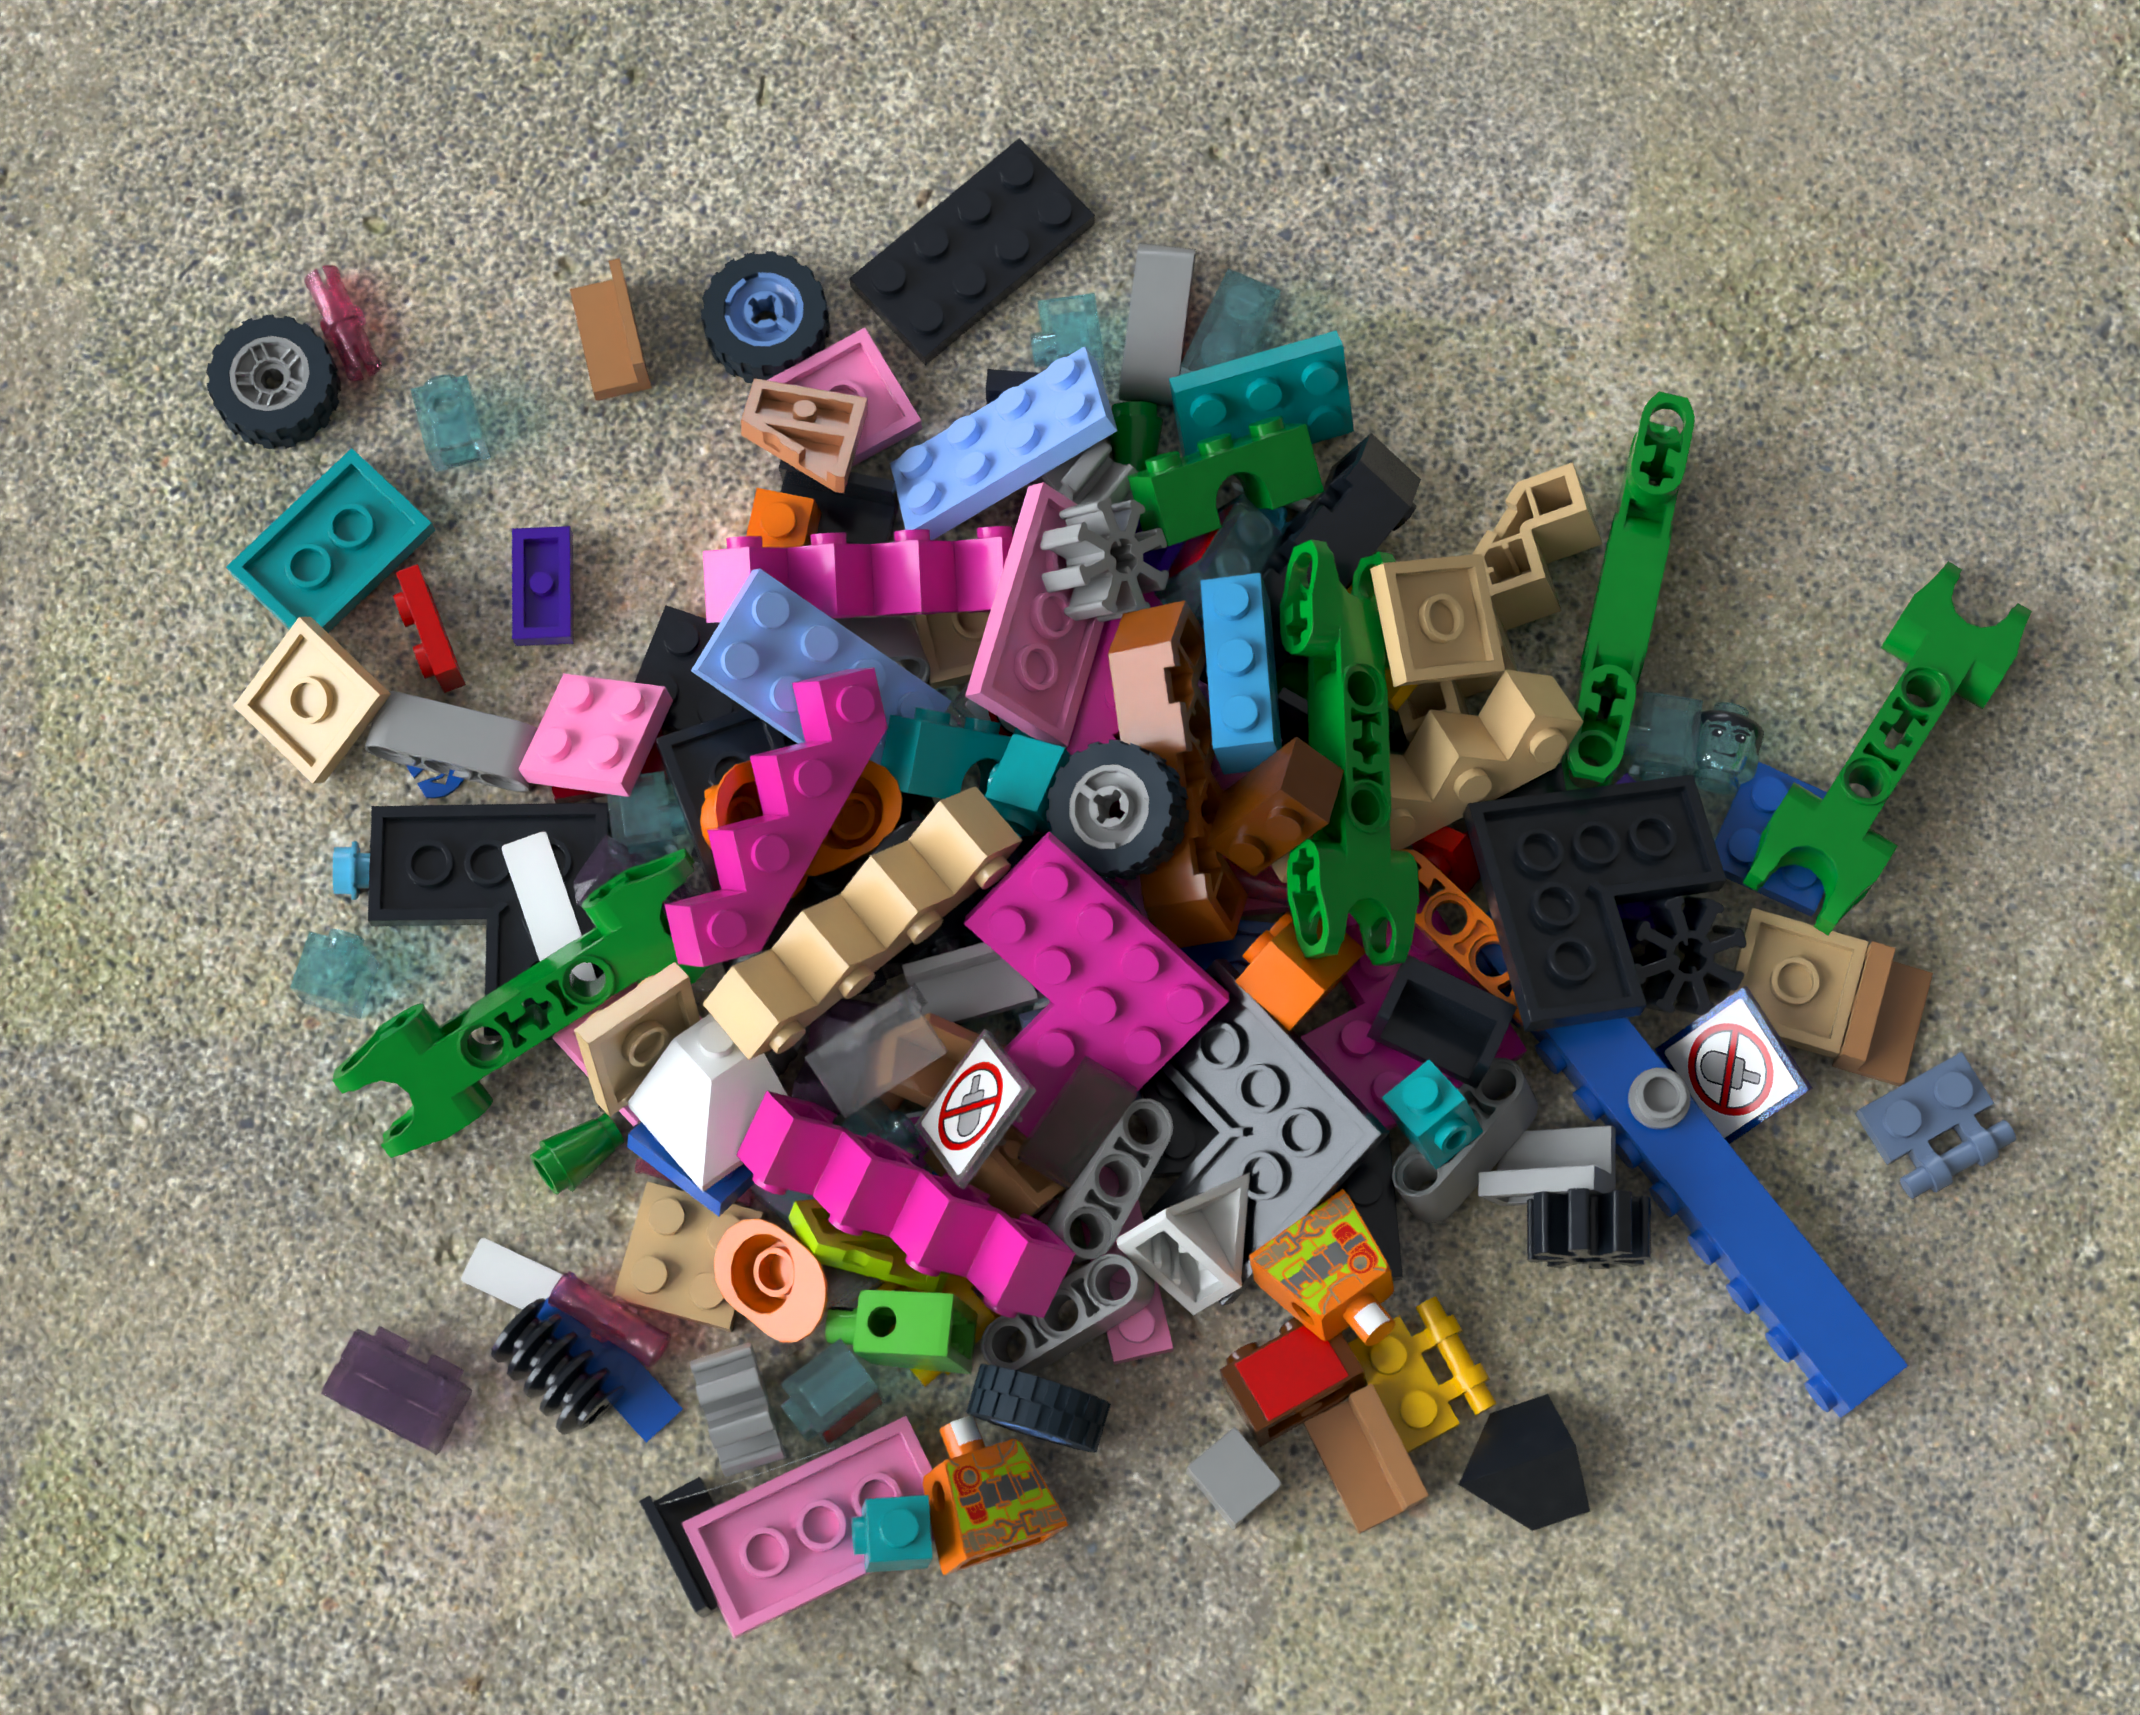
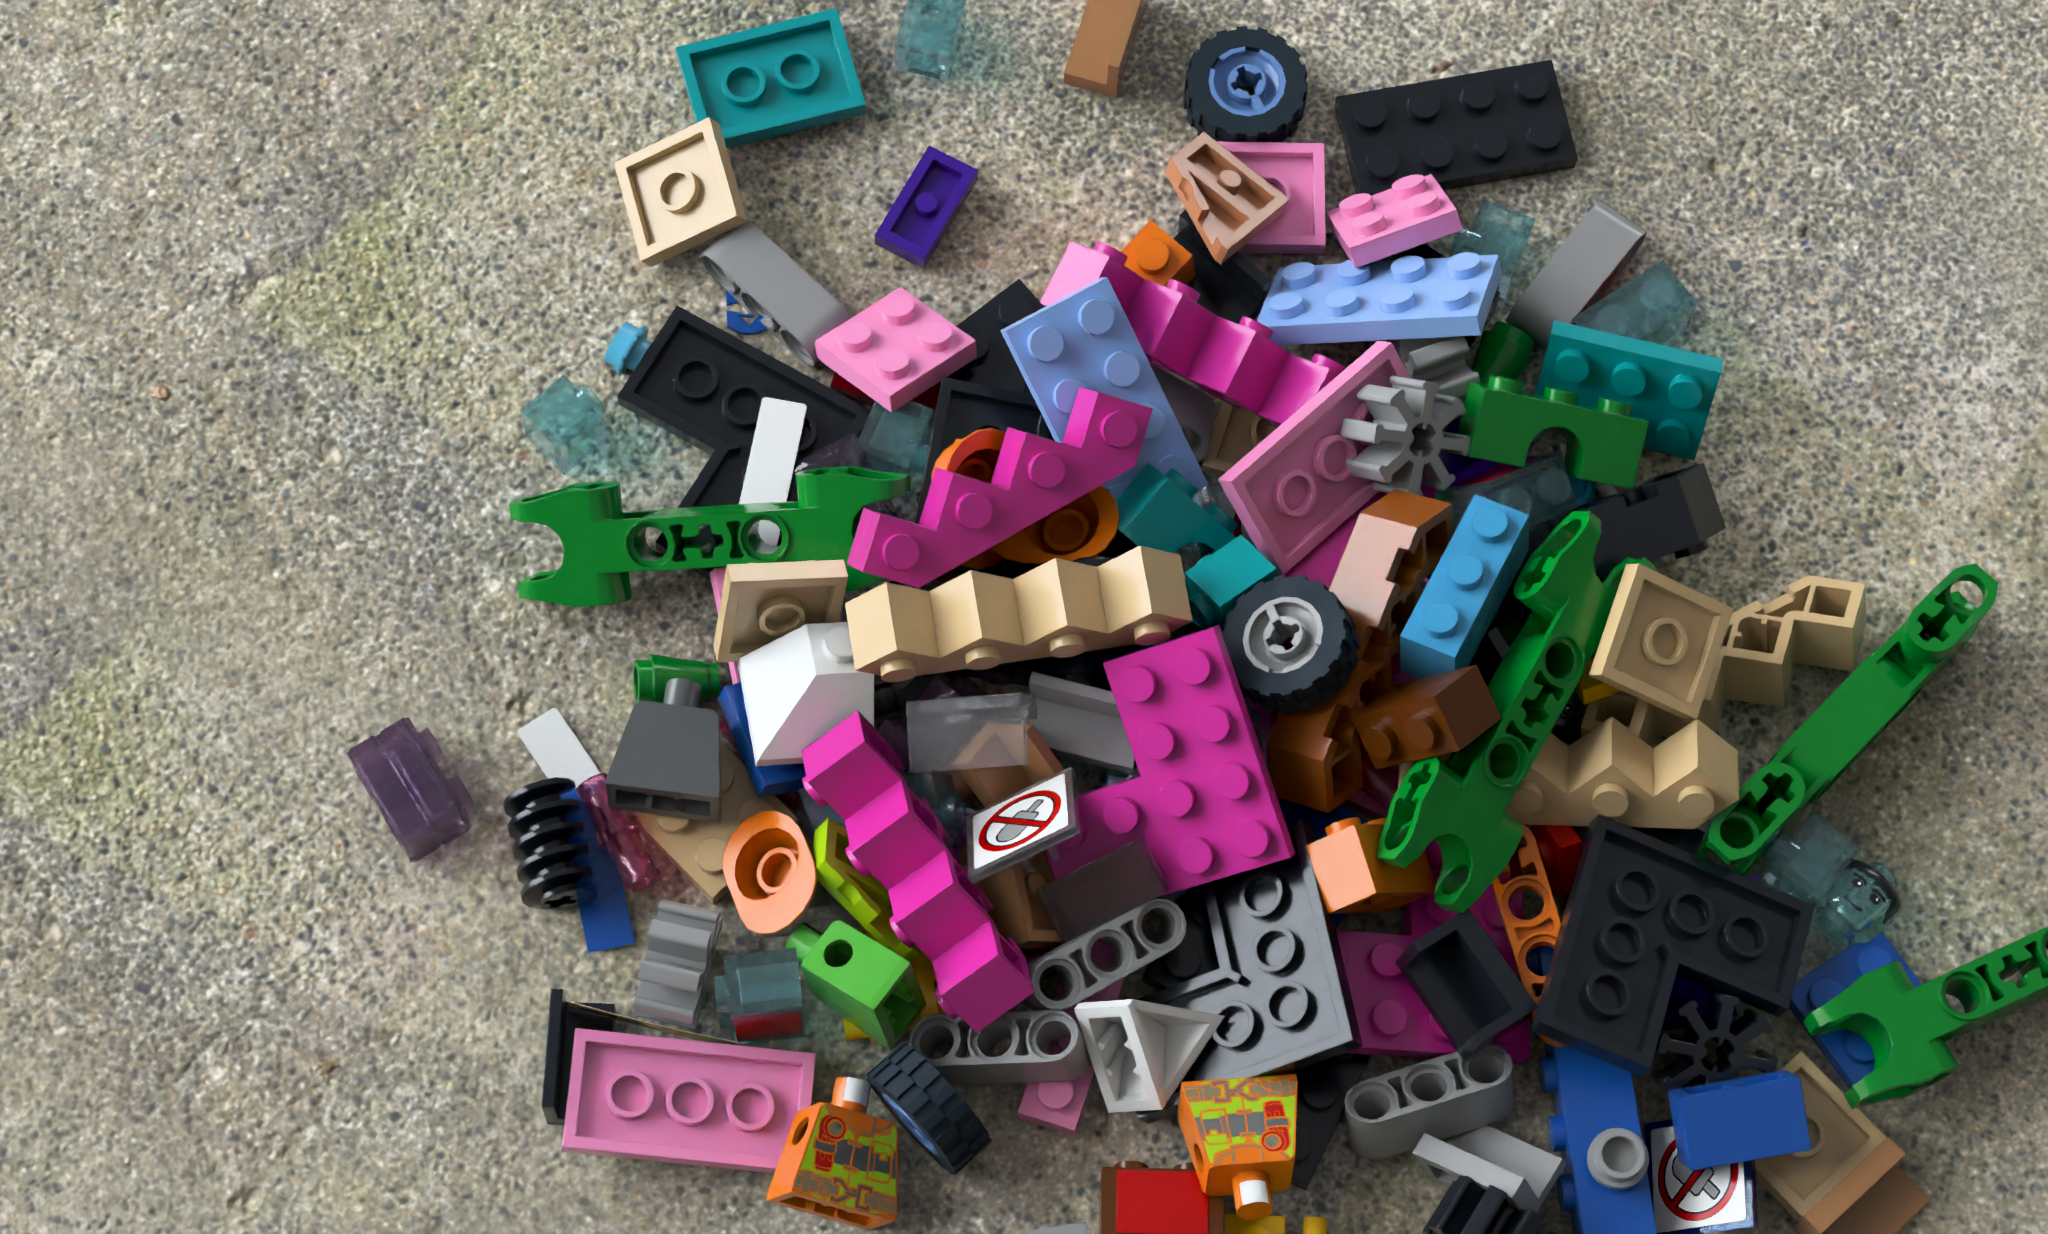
camera: 25 degrees right, 5 degrees down
(419, 608) = (813, 167): red plate -> none
(618, 1227) = (669, 758): none -> dark grey torso
(893, 1533) = (743, 1138): teal brick -> none
(970, 364) = (1394, 219): none -> bright pink plate
(1432, 1114) = (1411, 1056): teal brick -> none
(1742, 1003) = (1739, 1120): none -> blue panel

